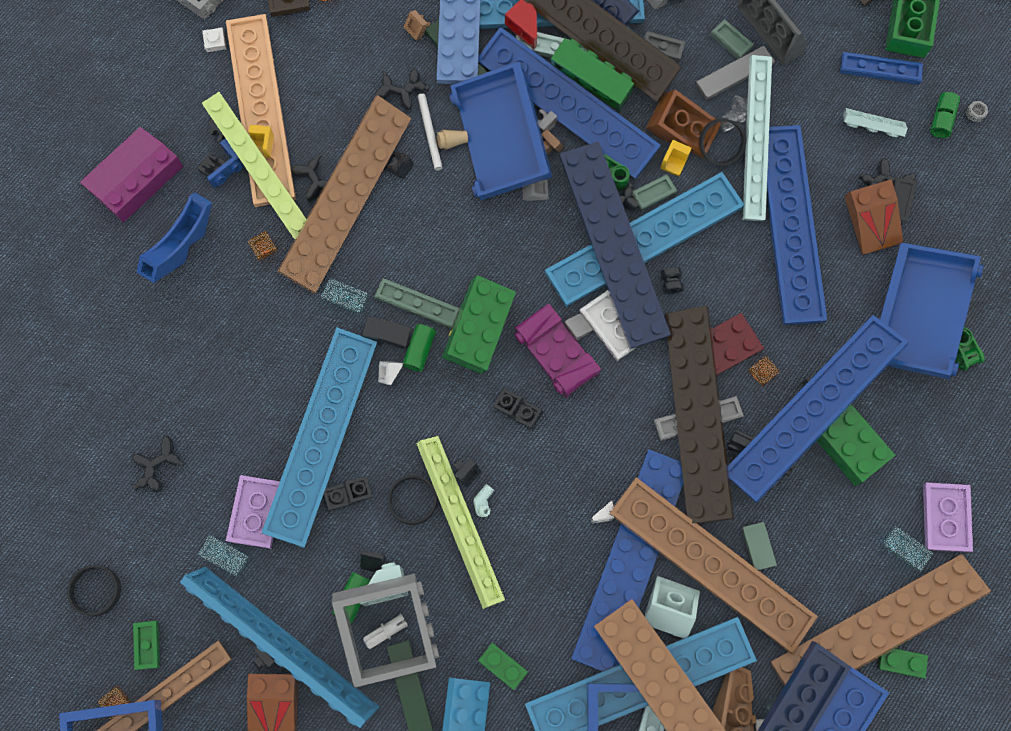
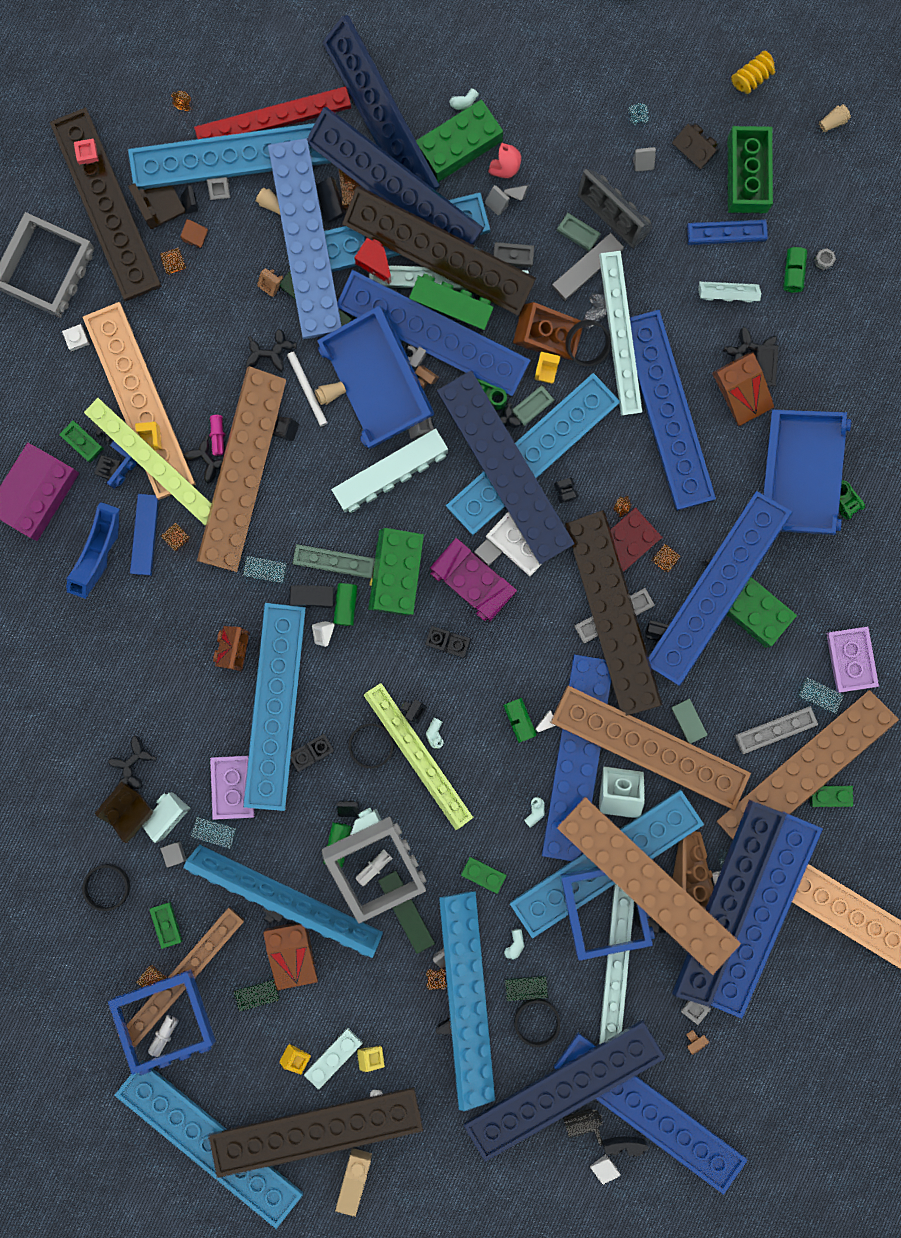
camera: 15 degrees left, 10 degrees up
(135, 511) = (125, 811): none -> dark brown bracket
(174, 569) = (173, 854): none -> light grey slope
(176, 527) = (165, 816): none -> light aqua slope
(193, 135) = (81, 441): none -> green plate
(231, 238) = (144, 535): none -> blue tile
(291, 366) = (231, 648): none -> dark orange slope
(329, 156) = (217, 435): none -> dark pink axle
(495, 225) = (390, 471): none -> light aqua brick
(576, 608) = (538, 811): none -> light aqua arm
(577, 505) = (520, 720): none -> green pin
(728, 308) = (622, 505): none -> clear orange plate
(852, 576) = (776, 730): none -> light grey tile

